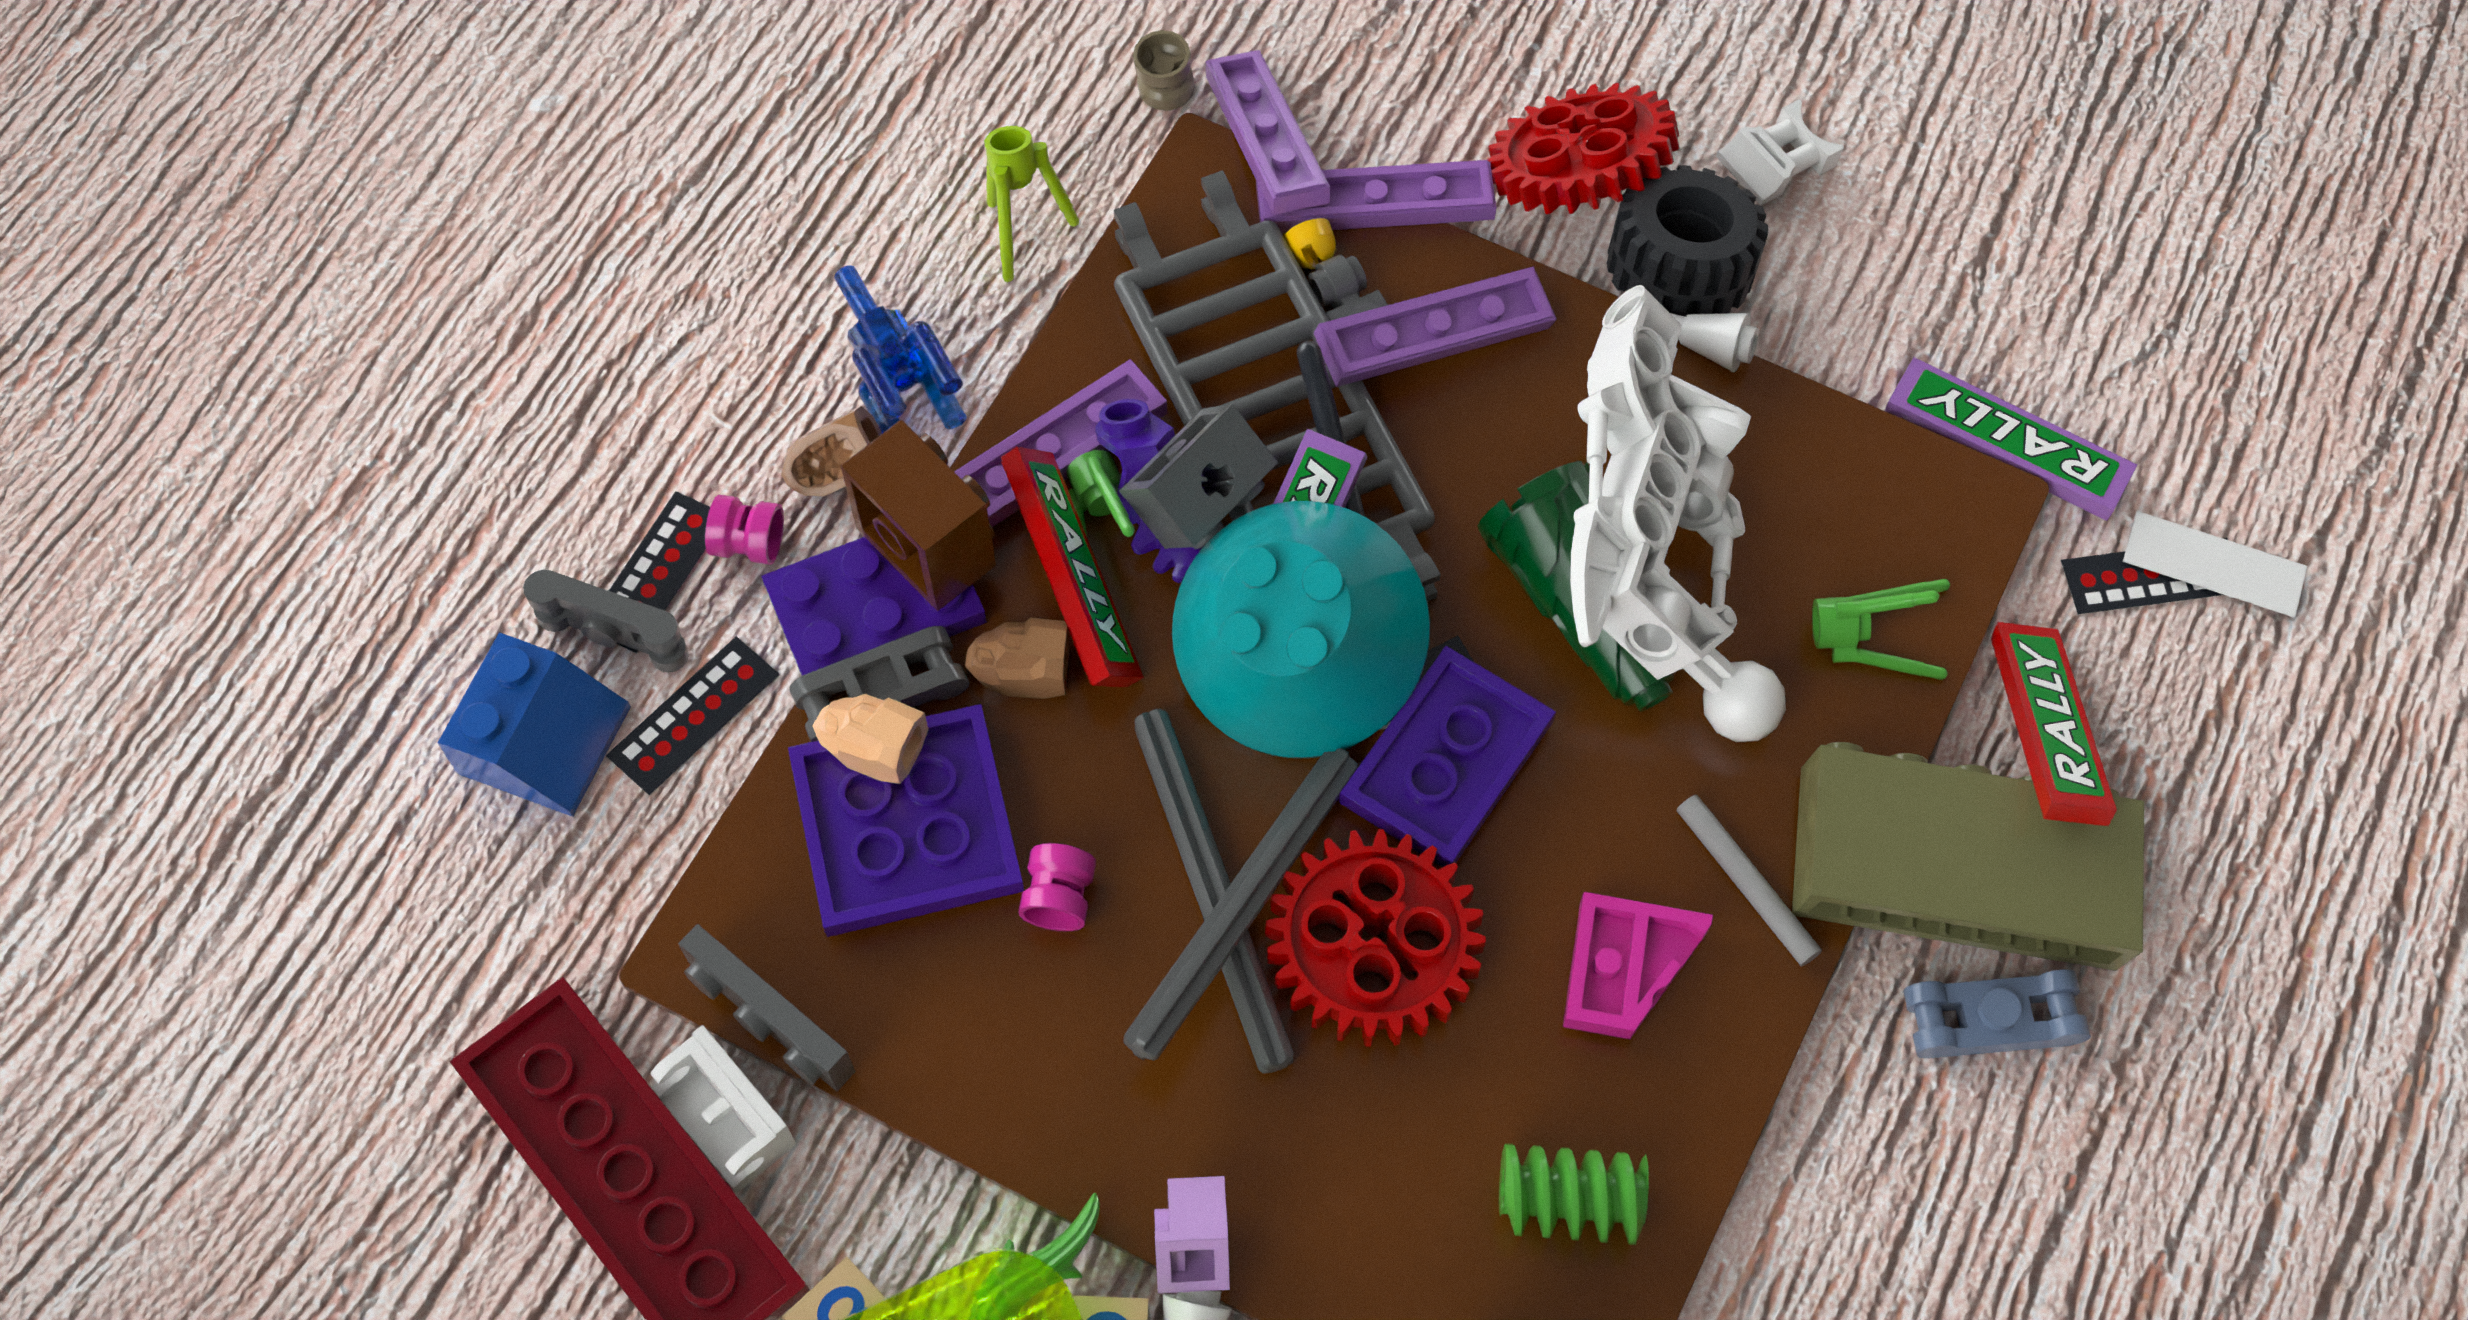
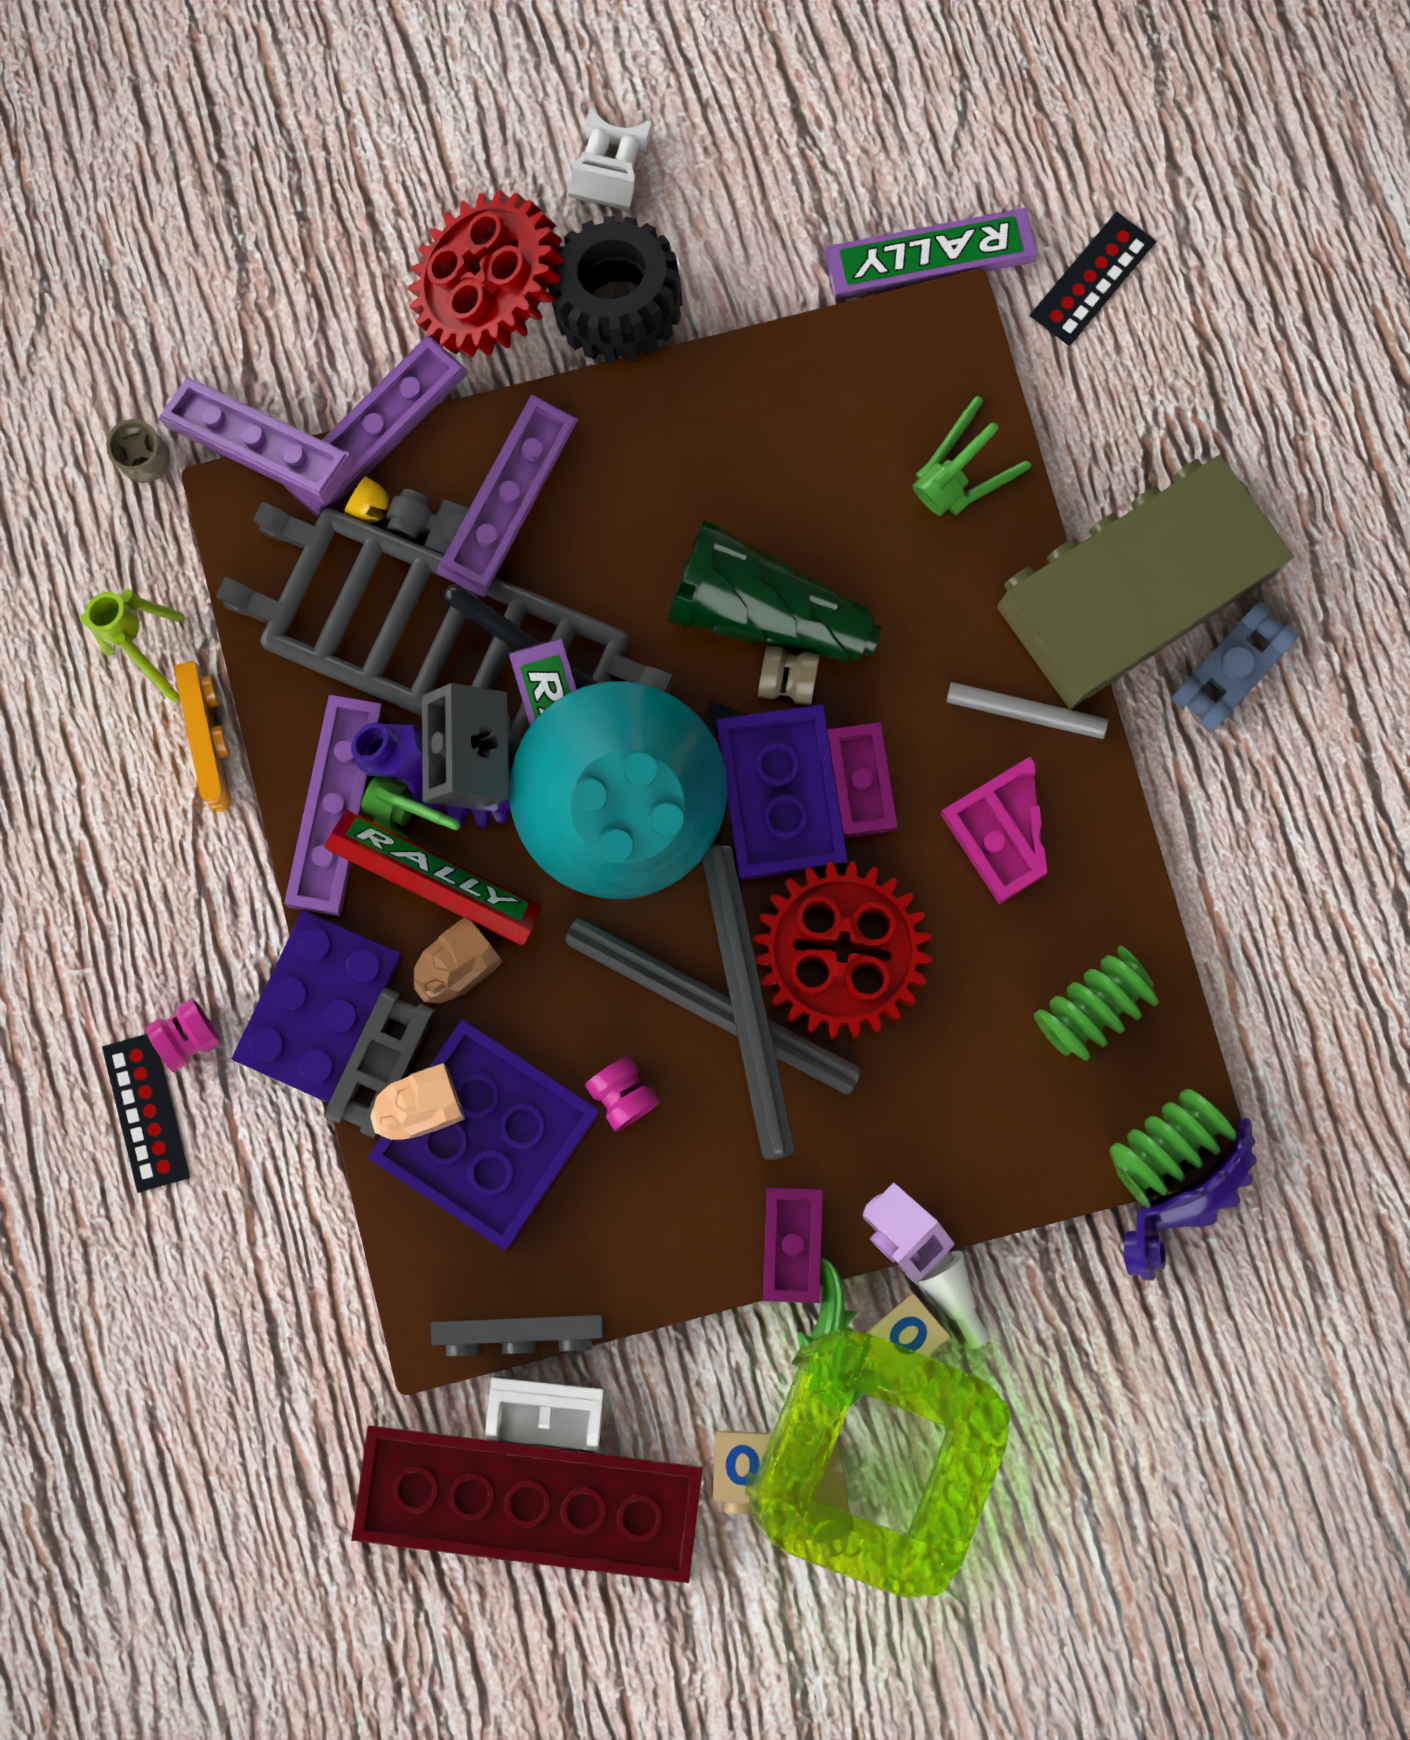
camera: 40 degrees left, 15 degrees up
(533, 725) = (181, 1287): blue slope -> none
(606, 618) = (154, 1176): dark grey plate -> none
(692, 715) = (269, 1185): black sticker -> none
(815, 459) = (192, 930): medium nougat rock -> none
(897, 358) = (165, 830): clear blue plant -> none
(920, 513) = (313, 933): reddish brown brick -> none
(1001, 314) = (206, 741): none -> light orange hinge
(1079, 1157) = (792, 1245): none -> magenta plate
(1532, 808) = (862, 780): none -> magenta plate
(1548, 664) = (800, 678): none -> dark tan wheel
(1662, 474) = (750, 487): white piece -> none
(1720, 337) = (692, 344): white cone -> none
(2052, 725) = (1124, 447): tile -> none
(2215, 564) = (1124, 237): white sticker -> none

